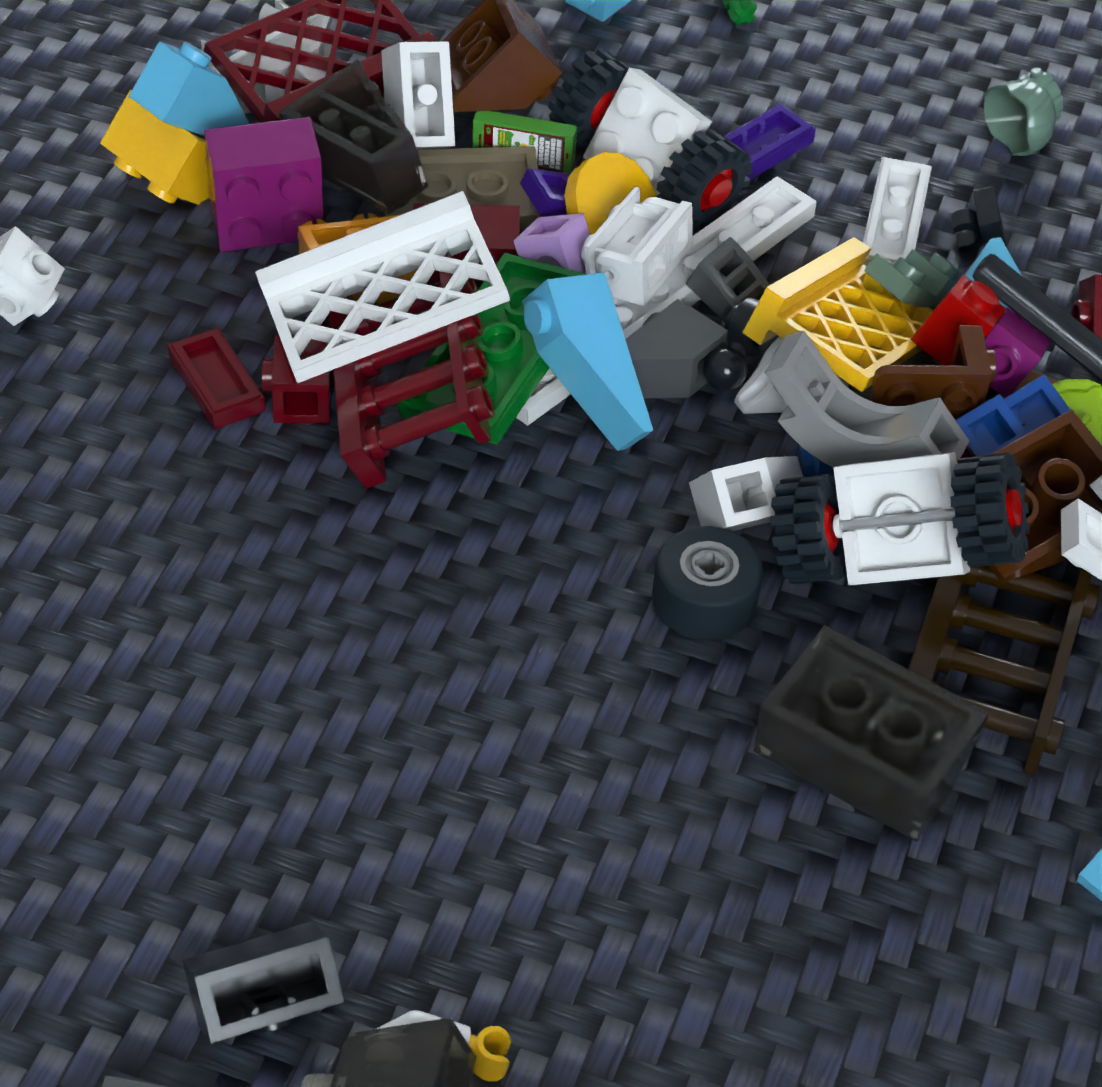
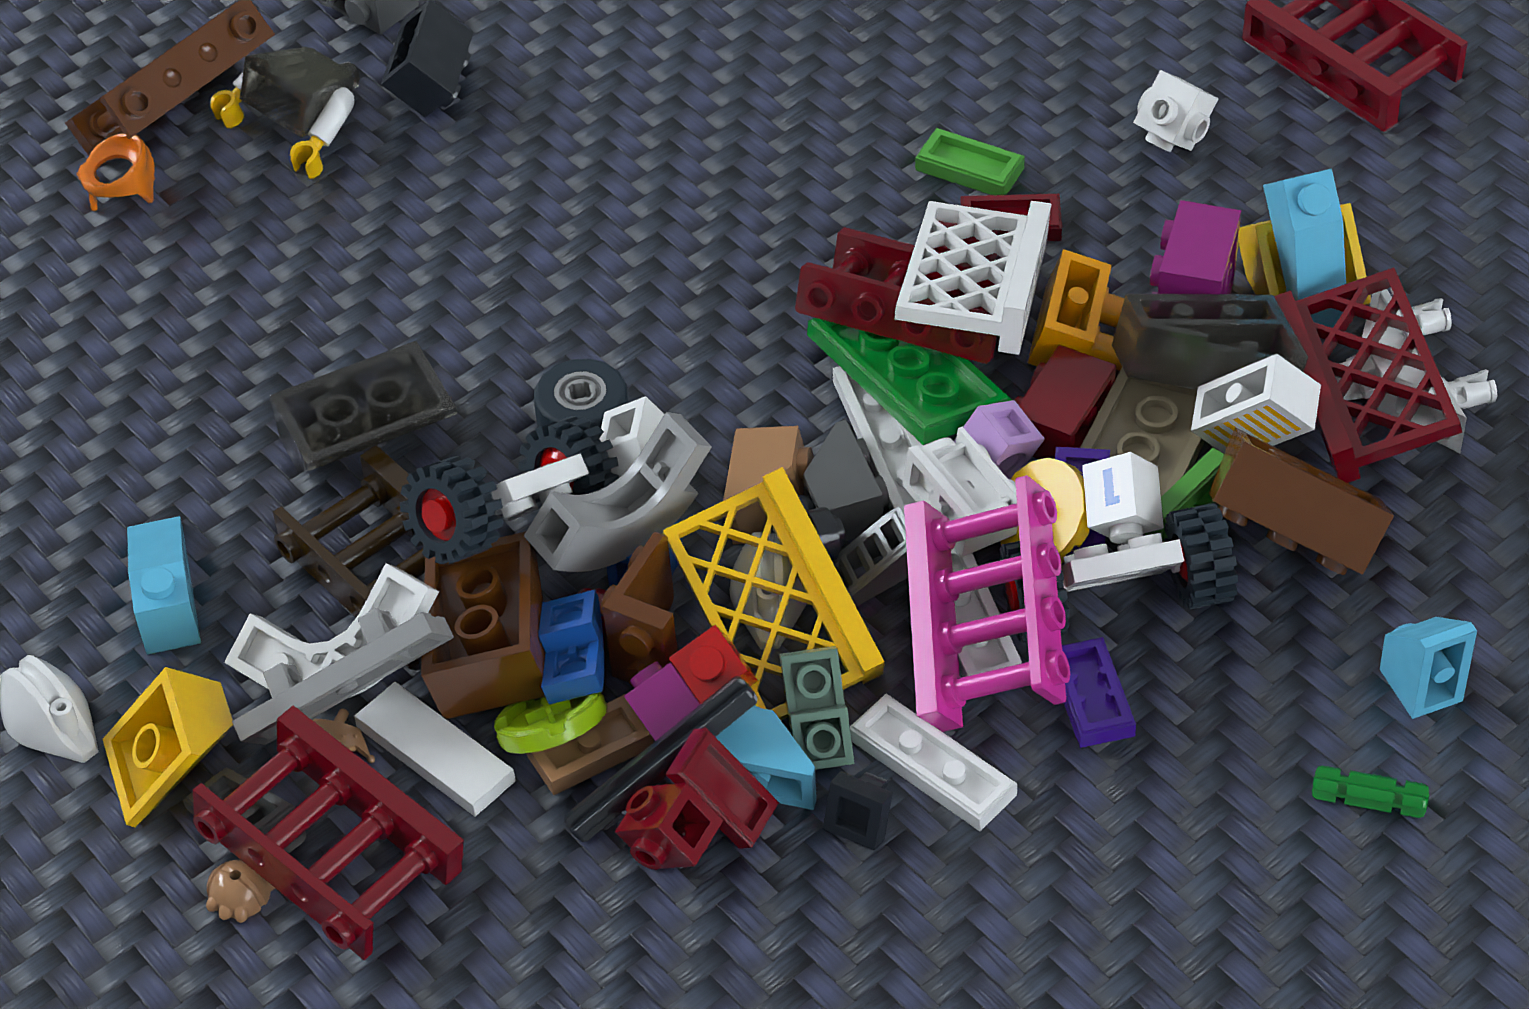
camera: 125 degrees right, 0 degrees up
(148, 436) = (969, 163): none -> bright green tile
(582, 132) = (1122, 497): none -> white brick
(587, 351) = (847, 382): medium azure slope -> none
(703, 406) = (760, 453): none -> medium nougat slope
(766, 216) = (936, 587): none -> dark pink fence
(1024, 111) = (999, 924): sand green hair -> none
(1065, 284) = (724, 786): none -> dark red tile

